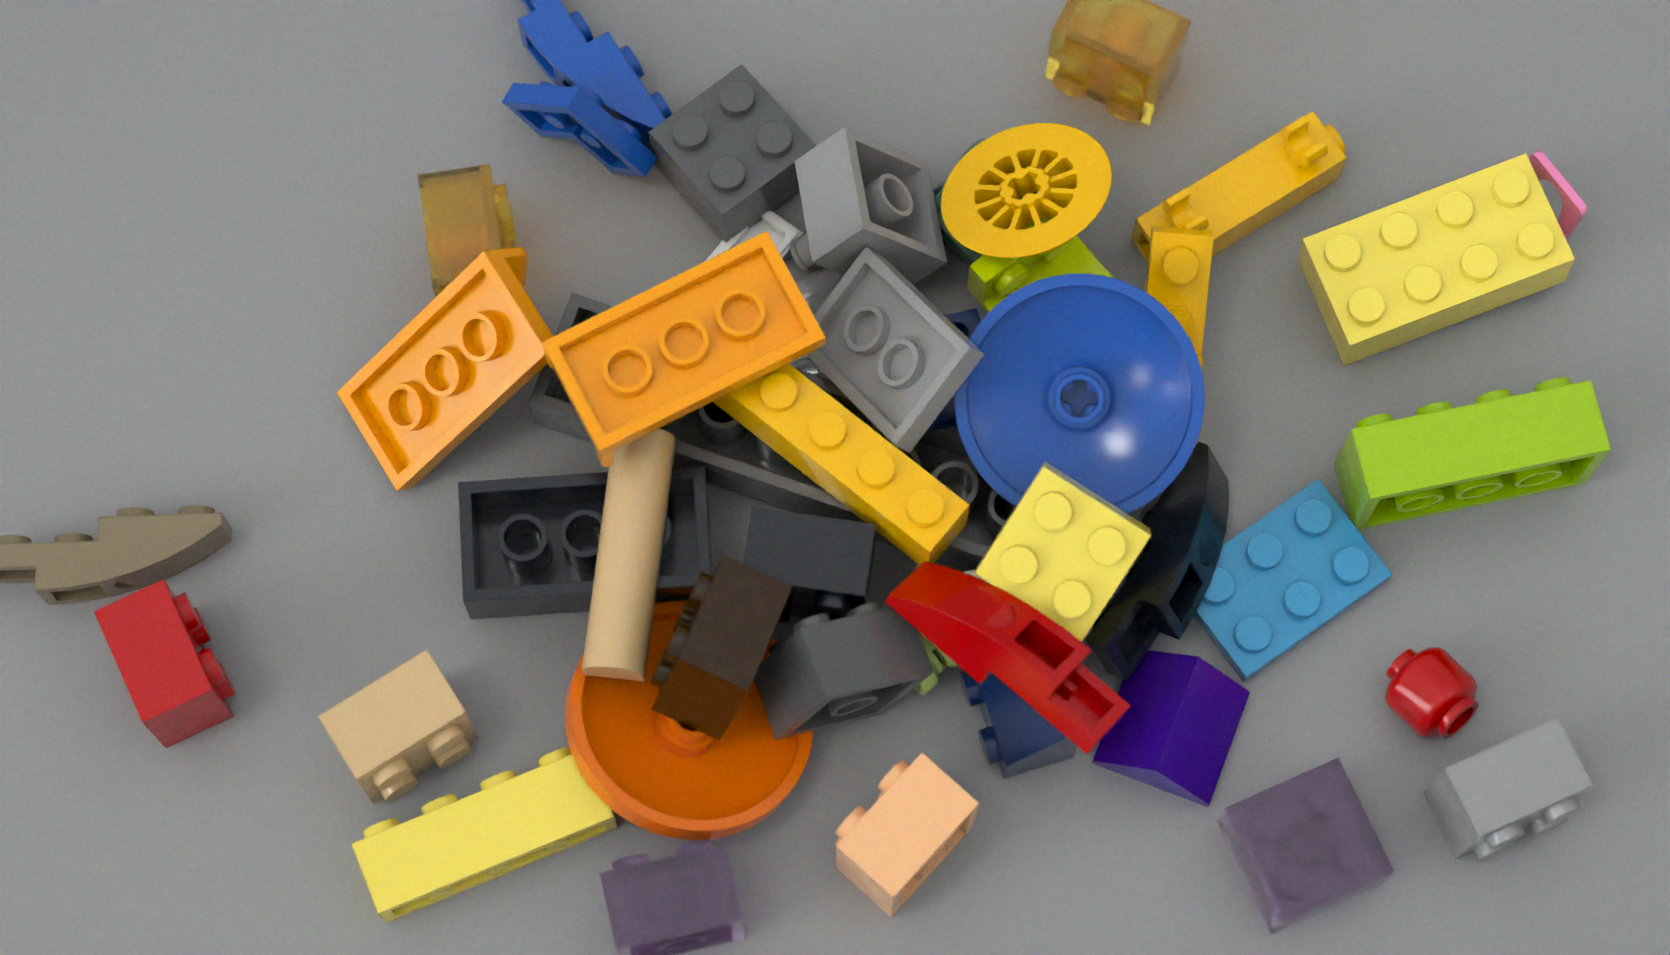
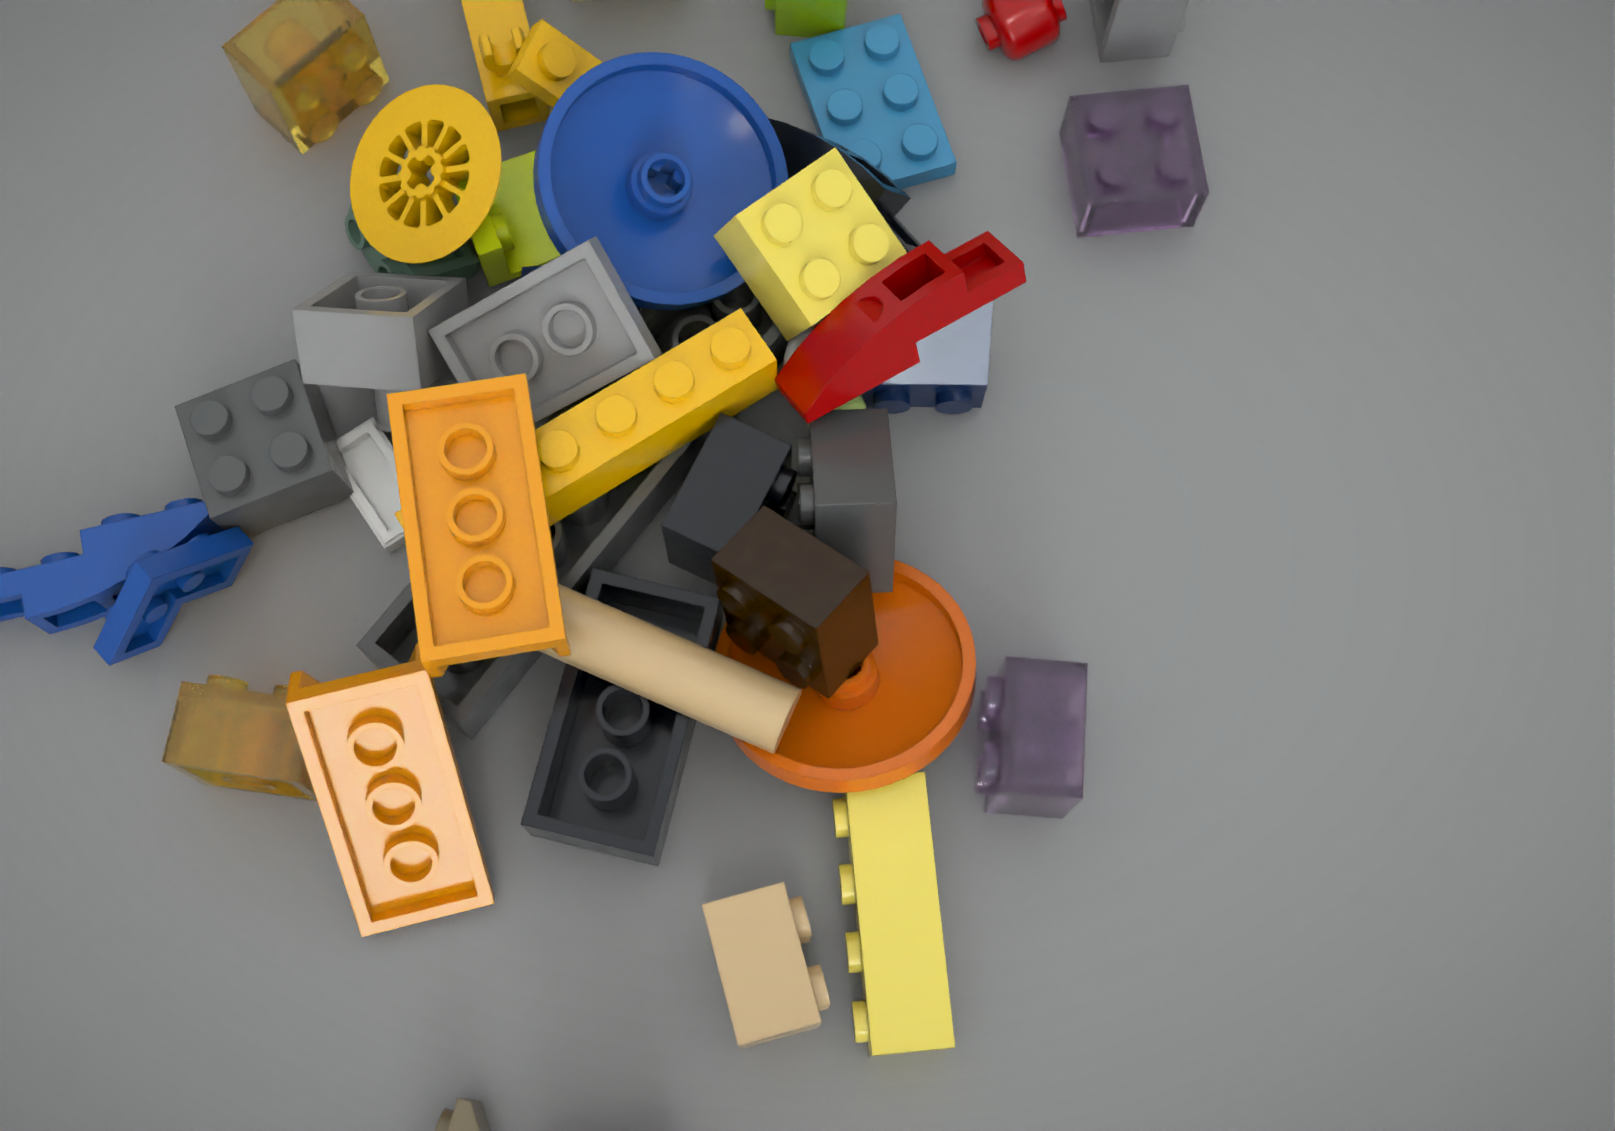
camera: 75 degrees left, 0 degrees up
(904, 833) = (1027, 495): light nougat brick -> none
(1176, 725) = (968, 206): dark purple slope -> none

